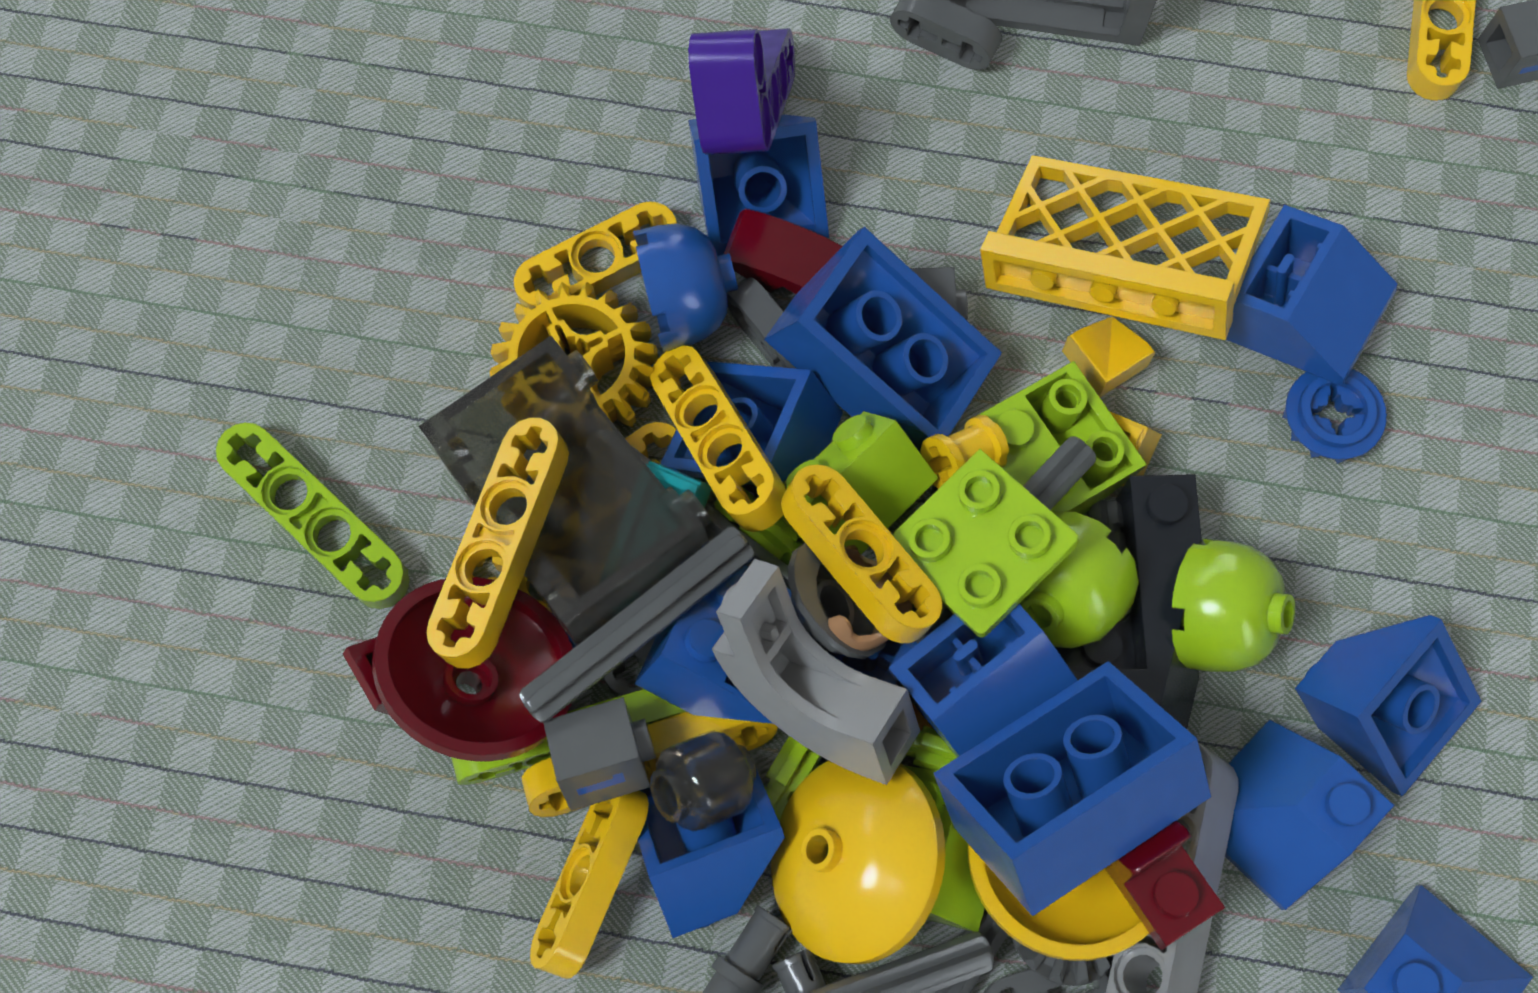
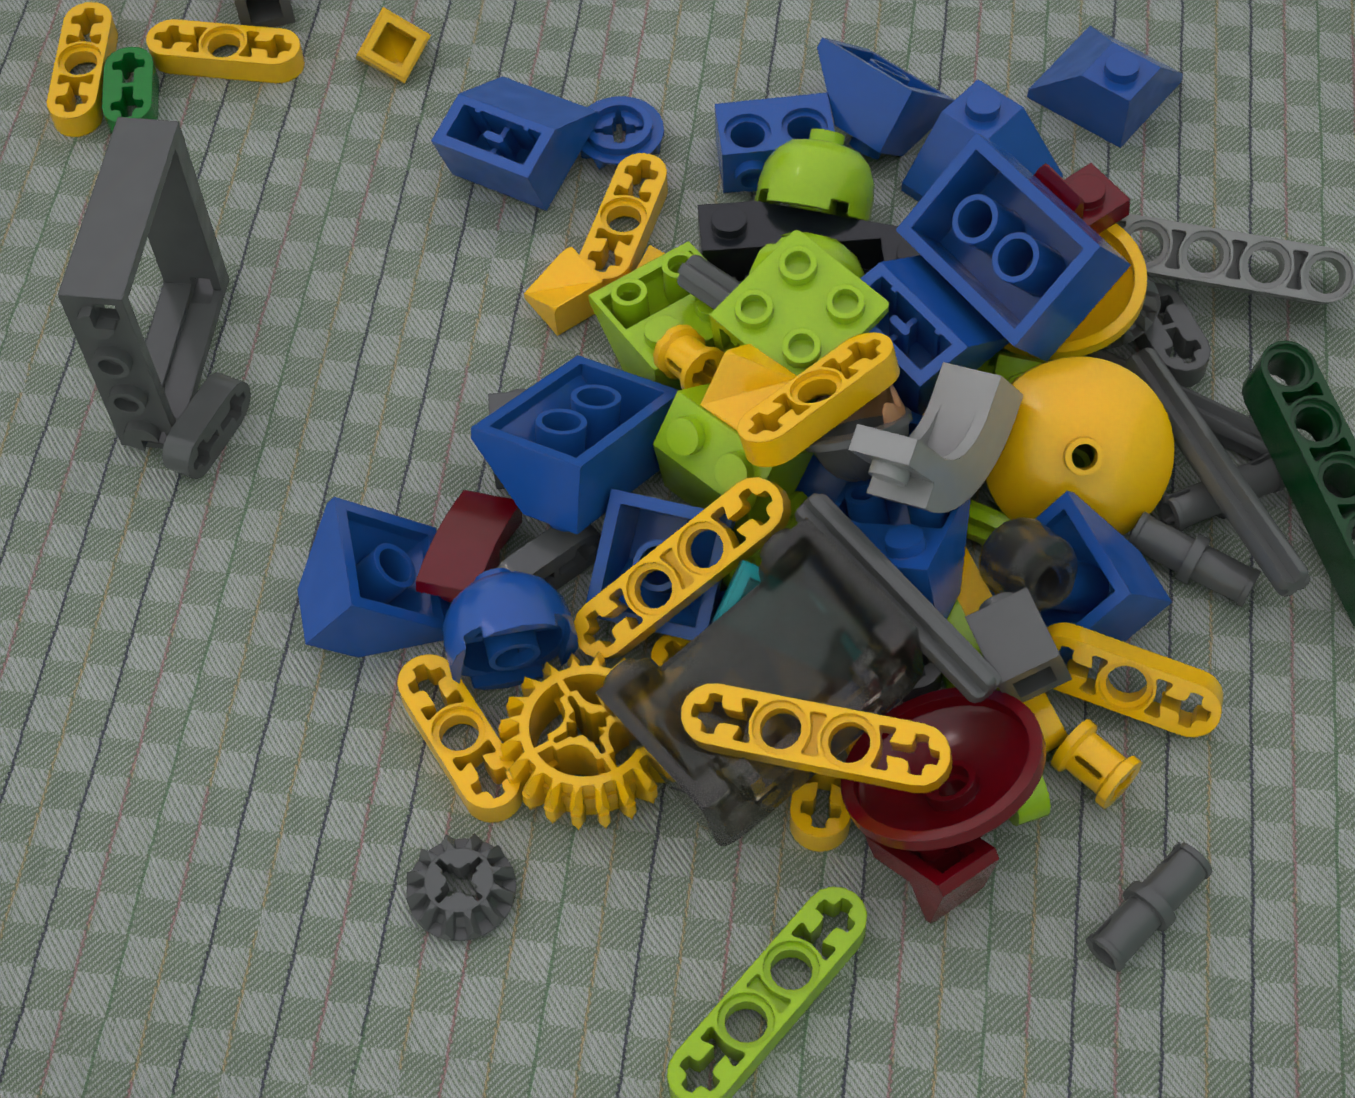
camera: 90 degrees left, 15 degrees down
(353, 868) = (1149, 906): none -> dark grey pin
(448, 287) = (461, 916): none -> dark grey gear
(505, 837) = (1096, 763): none -> yellow bush
(740, 87) = (315, 545): dark purple beam -> none
(891, 485) = (742, 382): none -> yellow slope
(1109, 279) = (505, 276): yellow fence -> none
(1242, 447) = (621, 202): none -> yellow beam
(1333, 577) = (754, 128): none -> blue brick
(1455, 180) = (393, 45): none -> yellow slope

